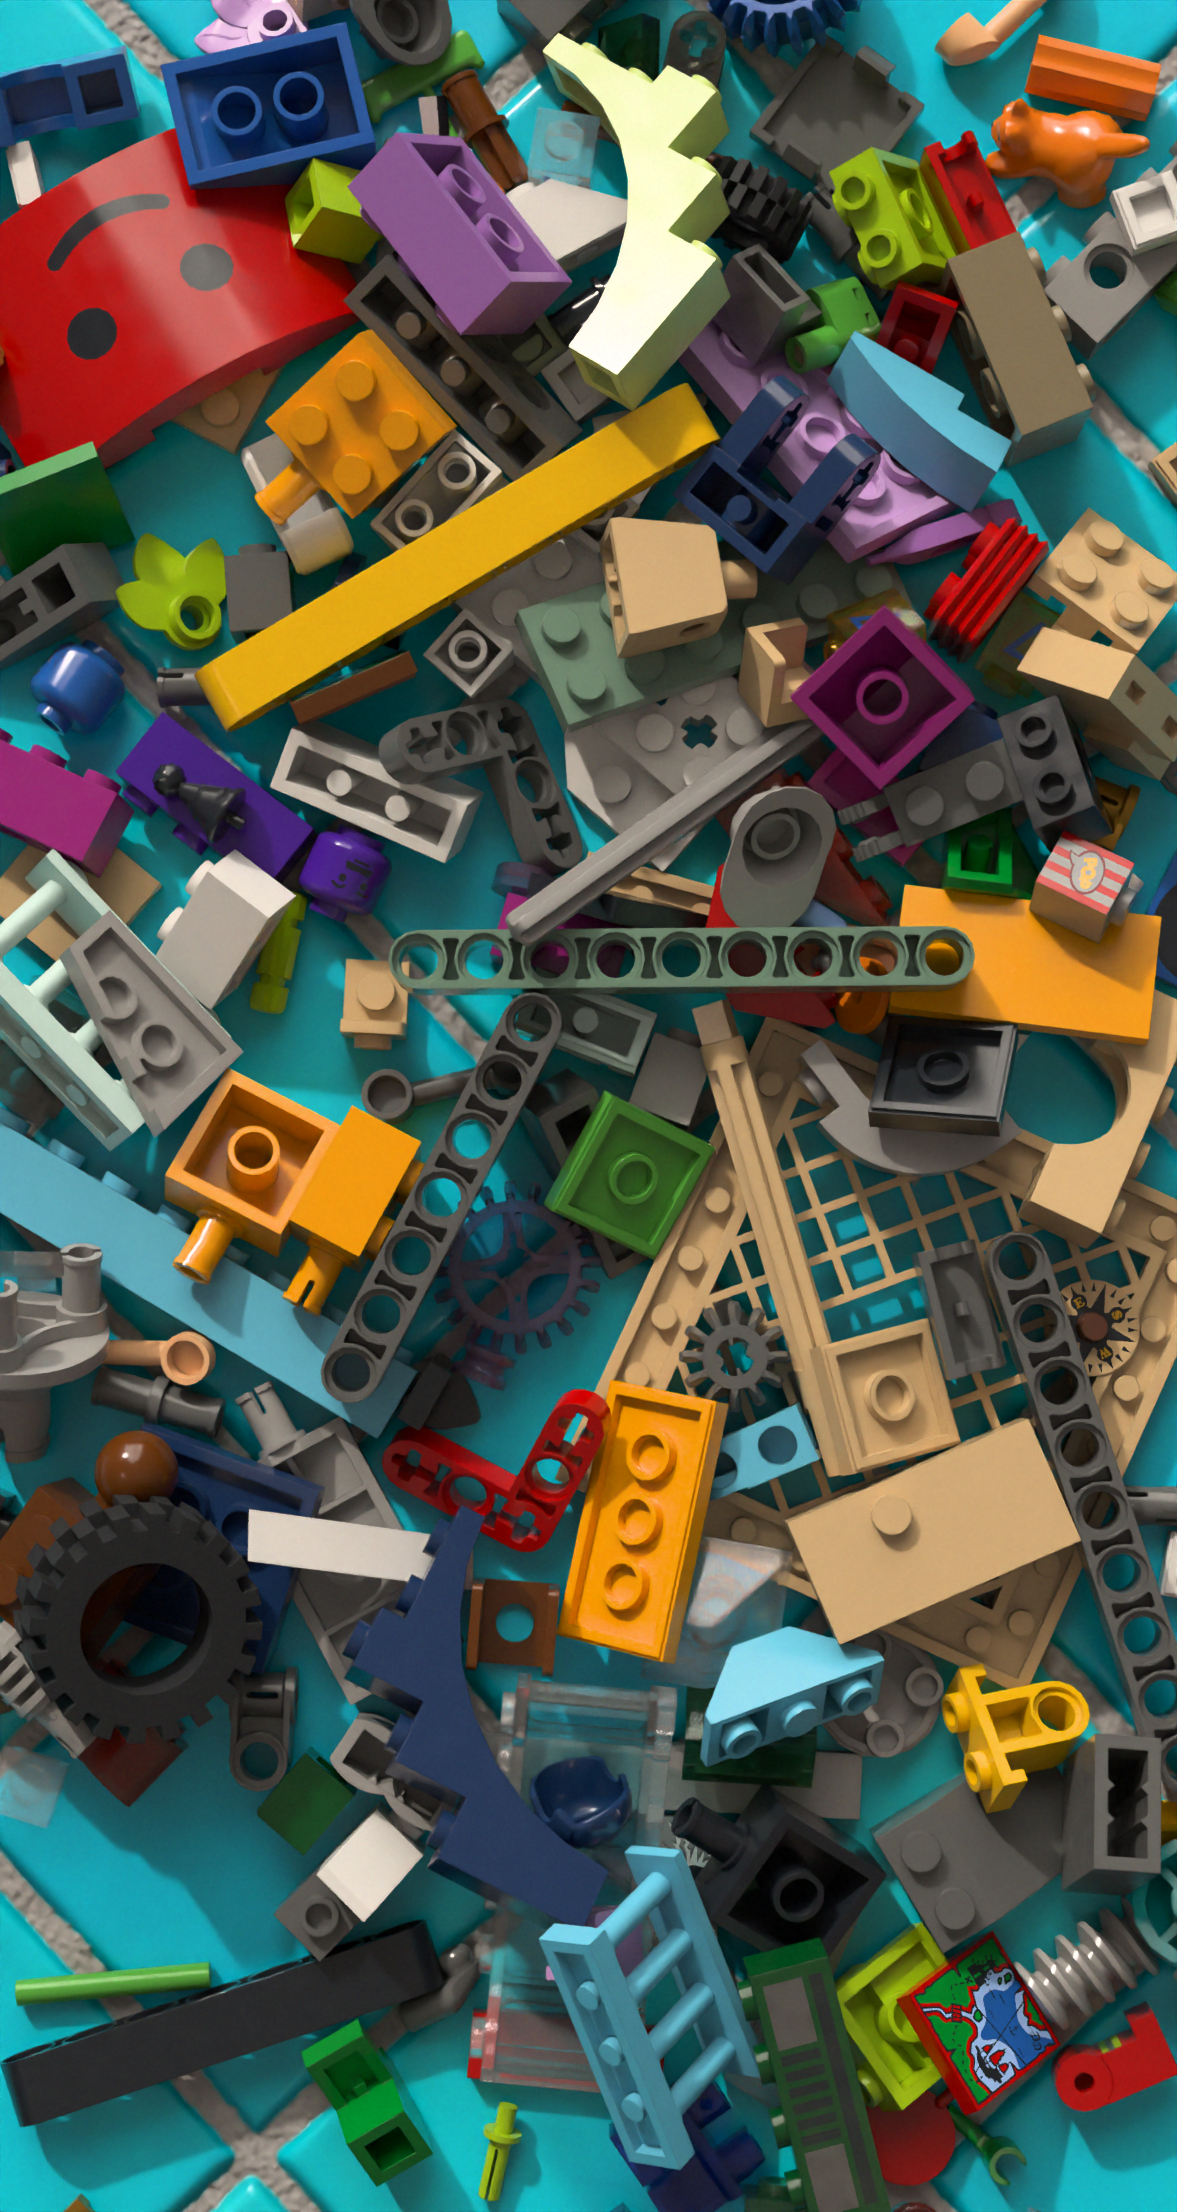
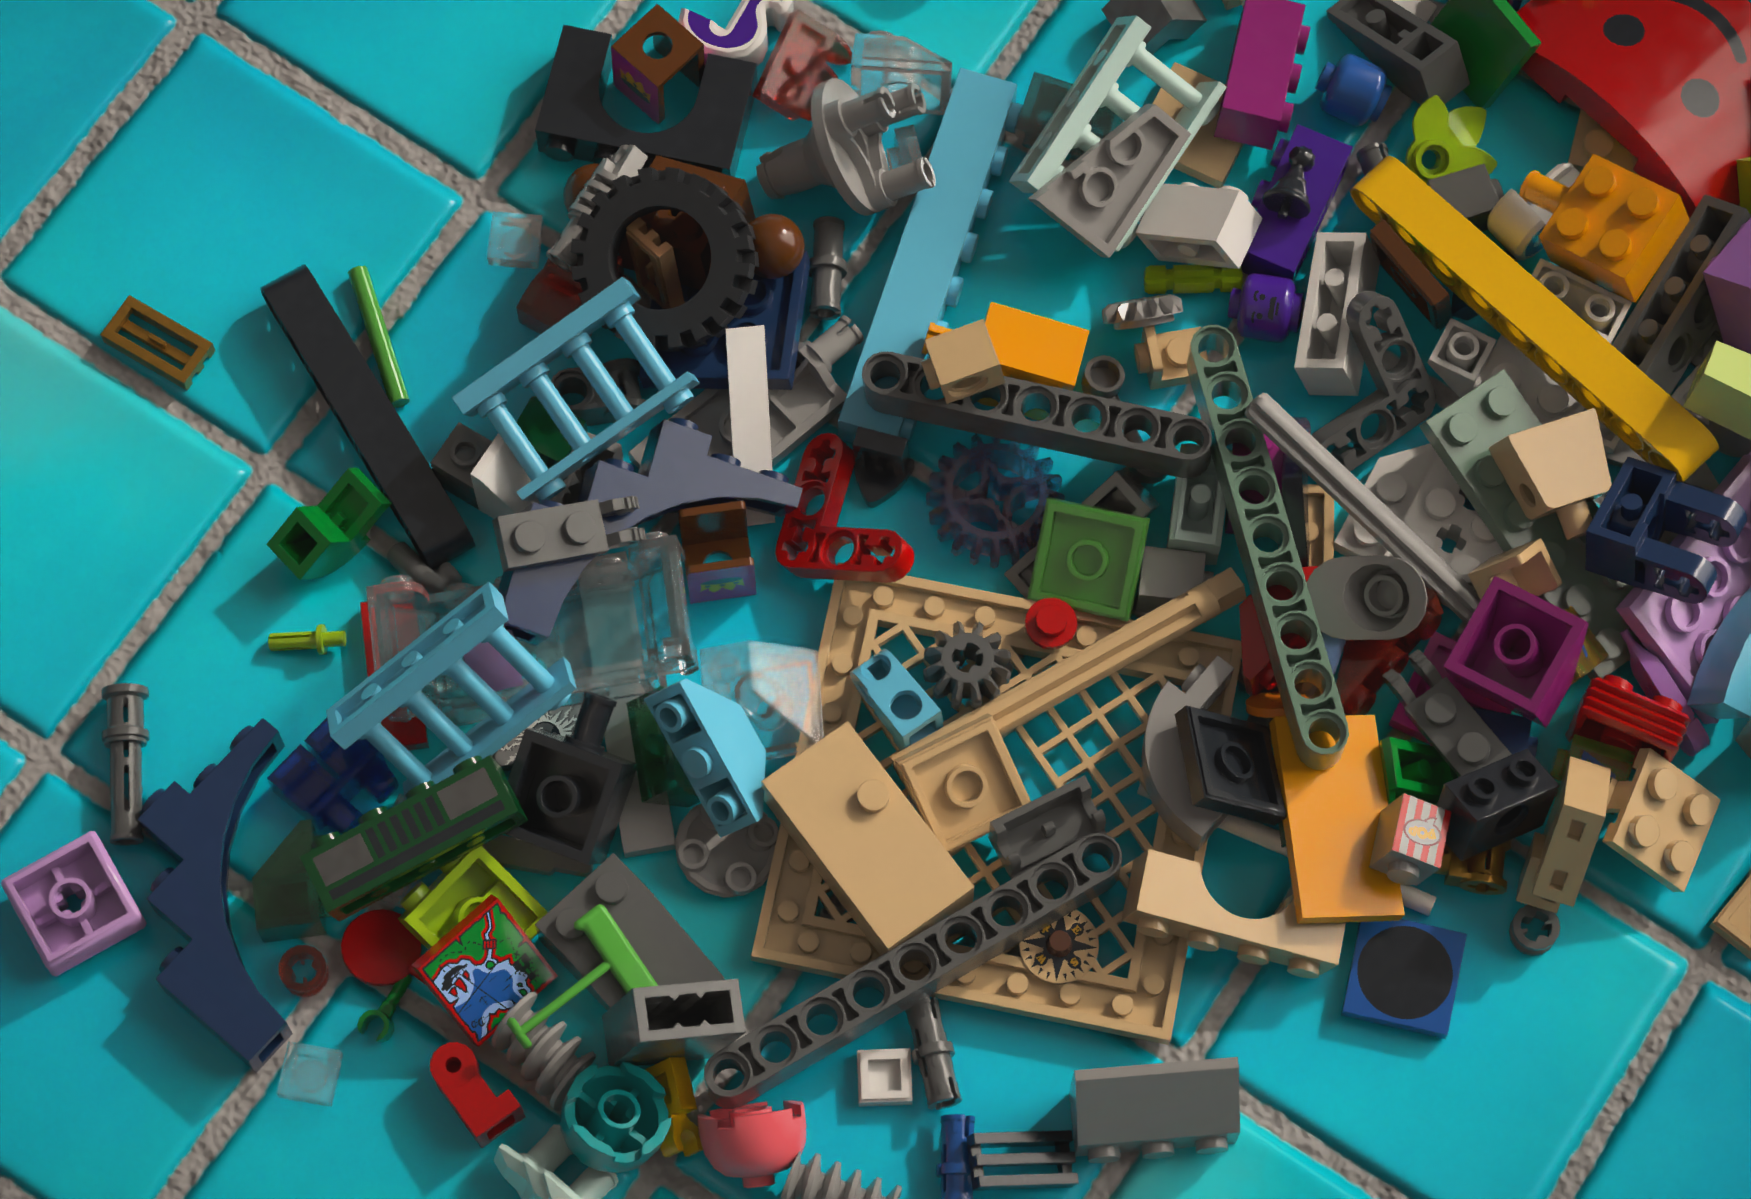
camera: 75 degrees right, 15 degrees down
(131, 1628) = (654, 264): none -> medium nougat tile
(183, 1357) = (865, 270): light nougat bar -> none
(229, 1761) = (530, 369): none -> medium azure fence
(244, 1171) = (1018, 269): light orange brick -> none
(317, 1027) = (1142, 311): none -> light grey gear
(372, 1278) = (962, 362): none -> tan brick
(484, 1365) = (913, 494): clear purple bush -> none
(486, 1828) = (562, 533): none -> dark grey hinge
(582, 1801) = (593, 623): dark blue hair -> none
(643, 1522) = (823, 620): light orange tile -> none
(699, 1241) = (1051, 623): none -> red plate
(1002, 1862) = (617, 956): none -> bright green piece
(1005, 1731) = (721, 942): yellow pin -> none

